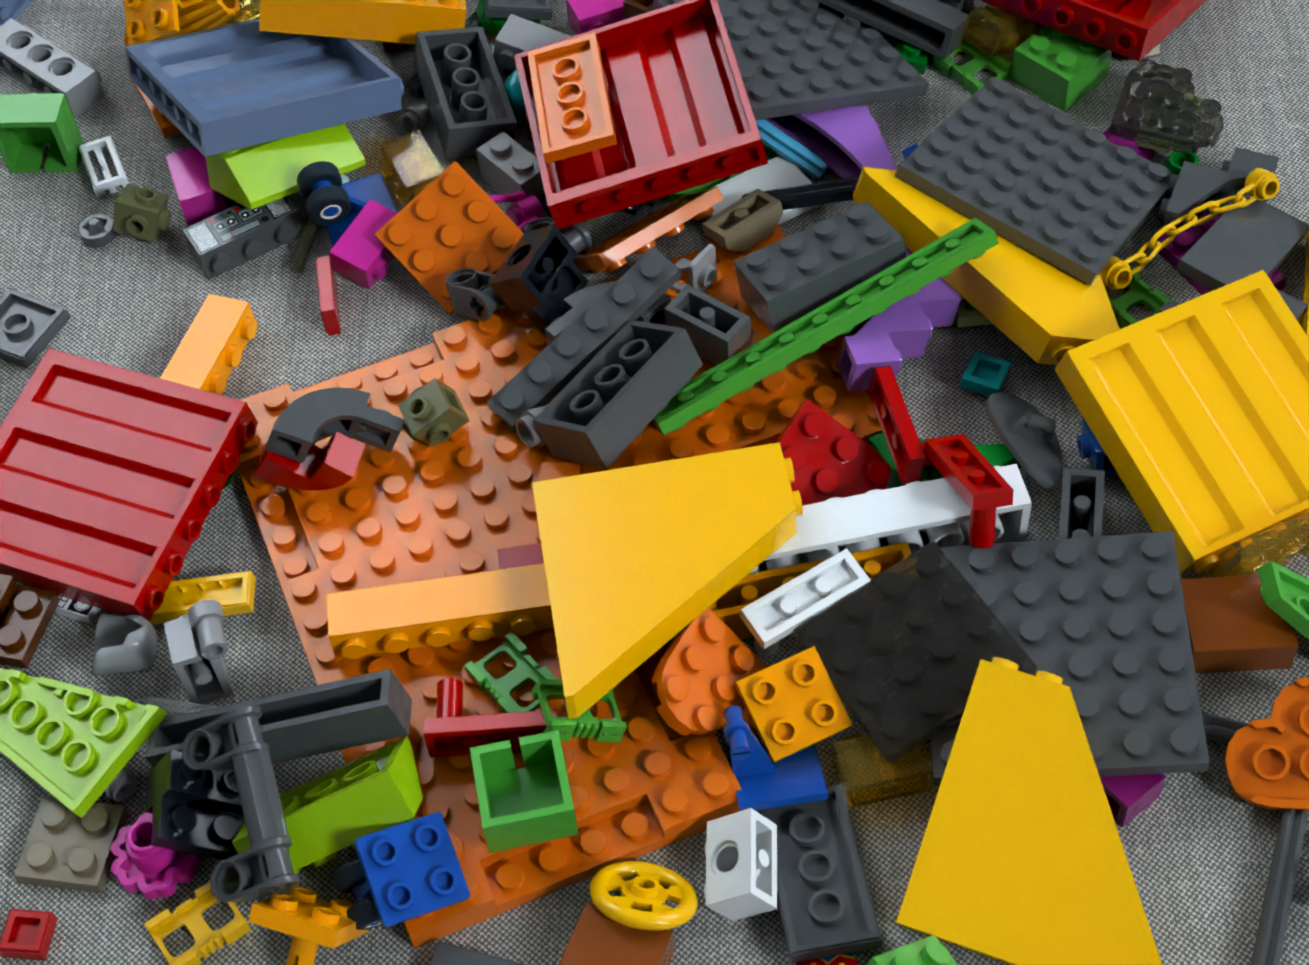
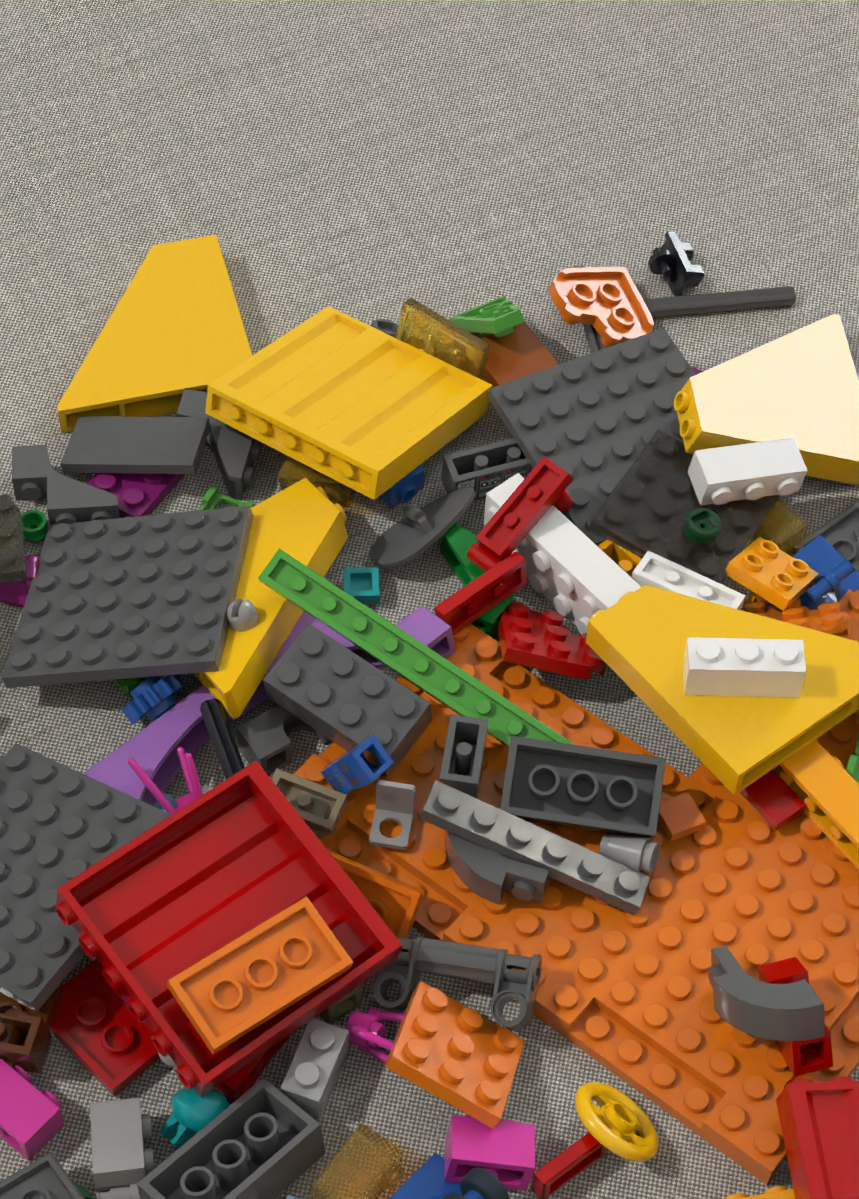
camera: 125 degrees left, 0 degrees up
(347, 299) = (616, 1122): none -> yellow plate
(432, 413) = (686, 934): olive brick -> none
(539, 276) = (506, 908): black brick -> none
(630, 519) = (743, 667): none -> white brick
(736, 238) = (354, 770): none -> blue leg
(794, 161) = (191, 778): none -> dark pink plant
(864, 627) = (702, 526): none -> dark green tile
(916, 707) = (747, 471): none -> white brick
(949, 210) = (246, 614): none -> light grey hinge
(1259, 184) = (63, 445): yellow piece -> none

